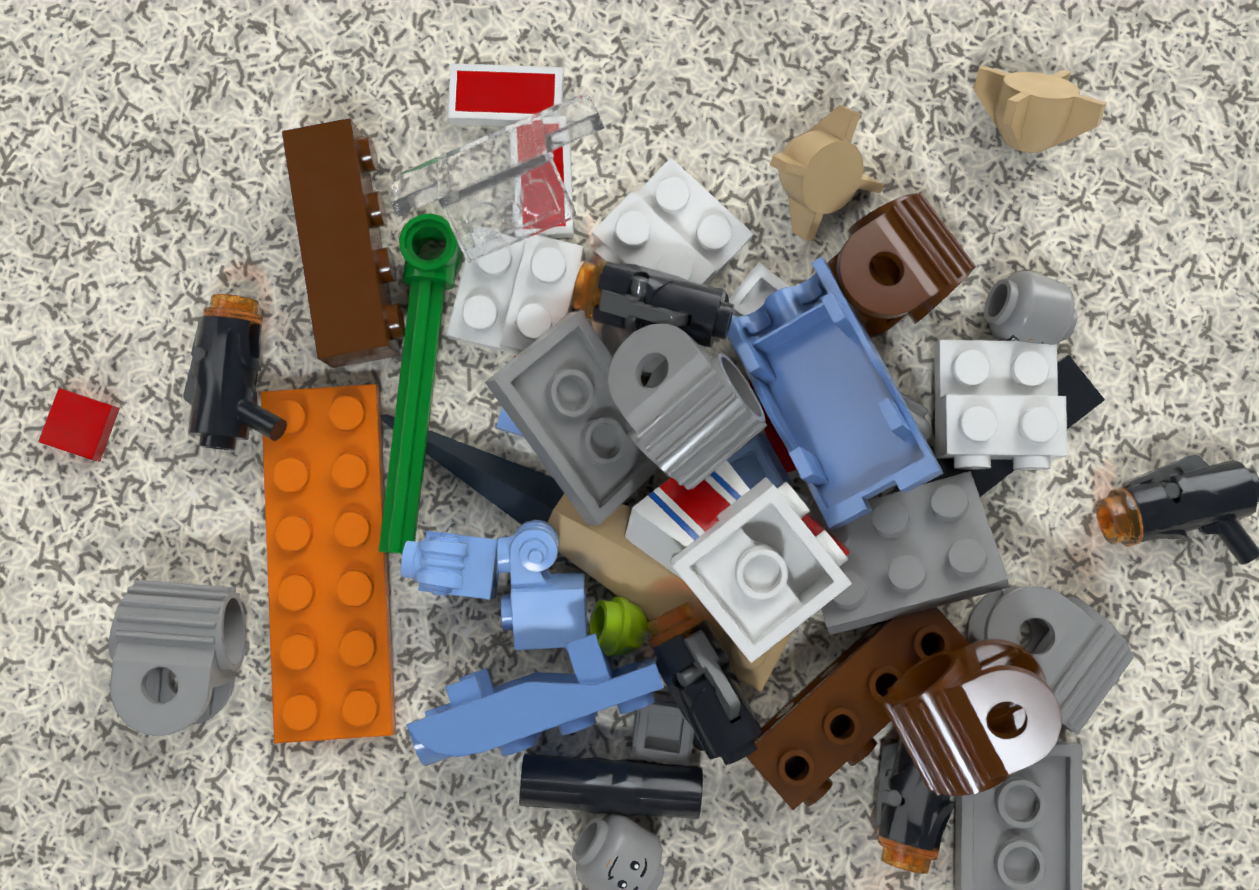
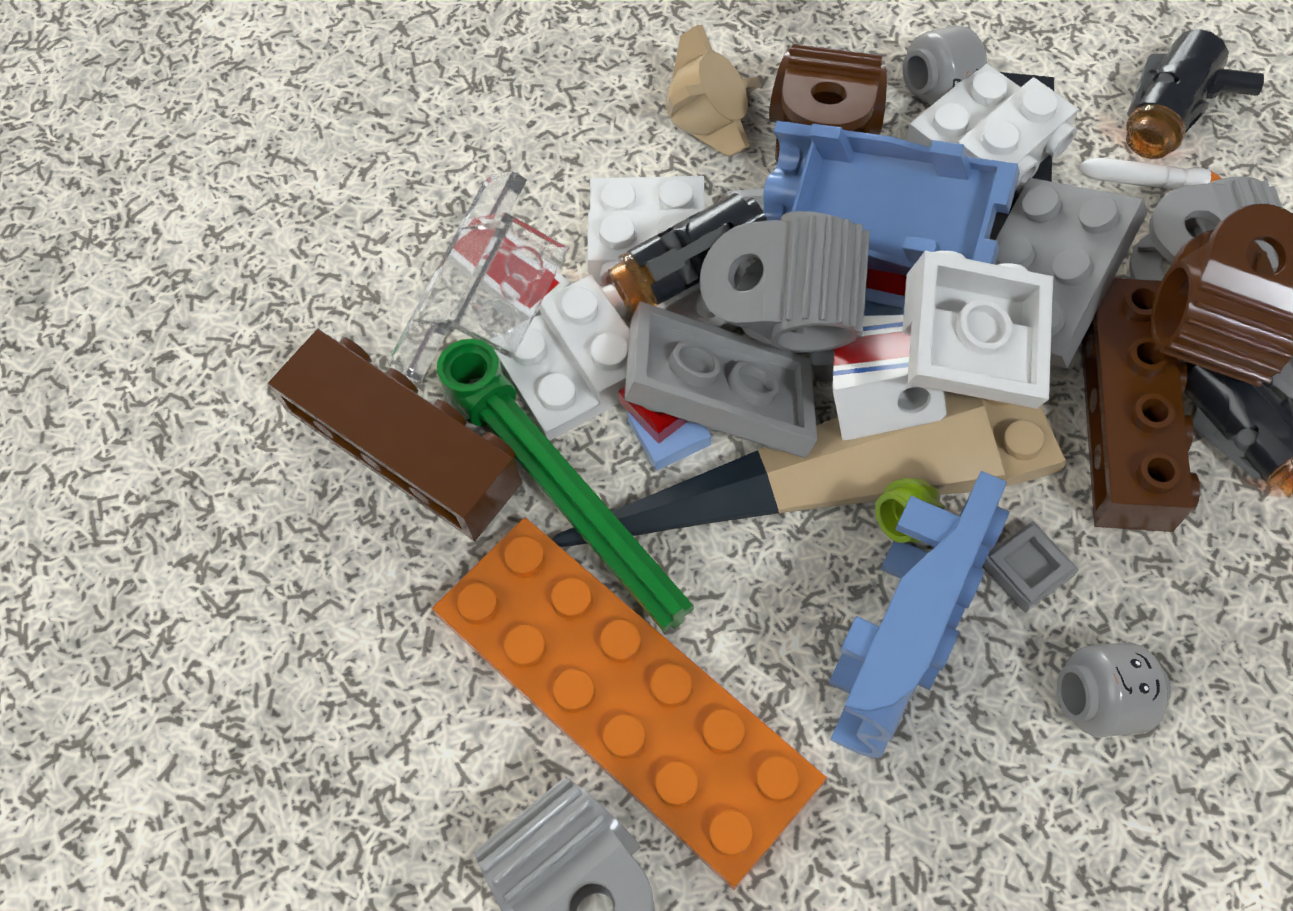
camera: 40 degrees left, 20 degrees down
(79, 425) = (287, 787): red tile -> none
(225, 375) = (388, 623): black piece -> none
(452, 565) = (736, 581): light blue brick -> none
(501, 93) = (414, 243): red tile -> none
(542, 606) = (831, 553): light blue brick -> none
(611, 786) = (1040, 642): black axle -> none
(703, 684) = (1040, 473): black piece -> none
(1084, 546) = (1145, 173): none -> white piece

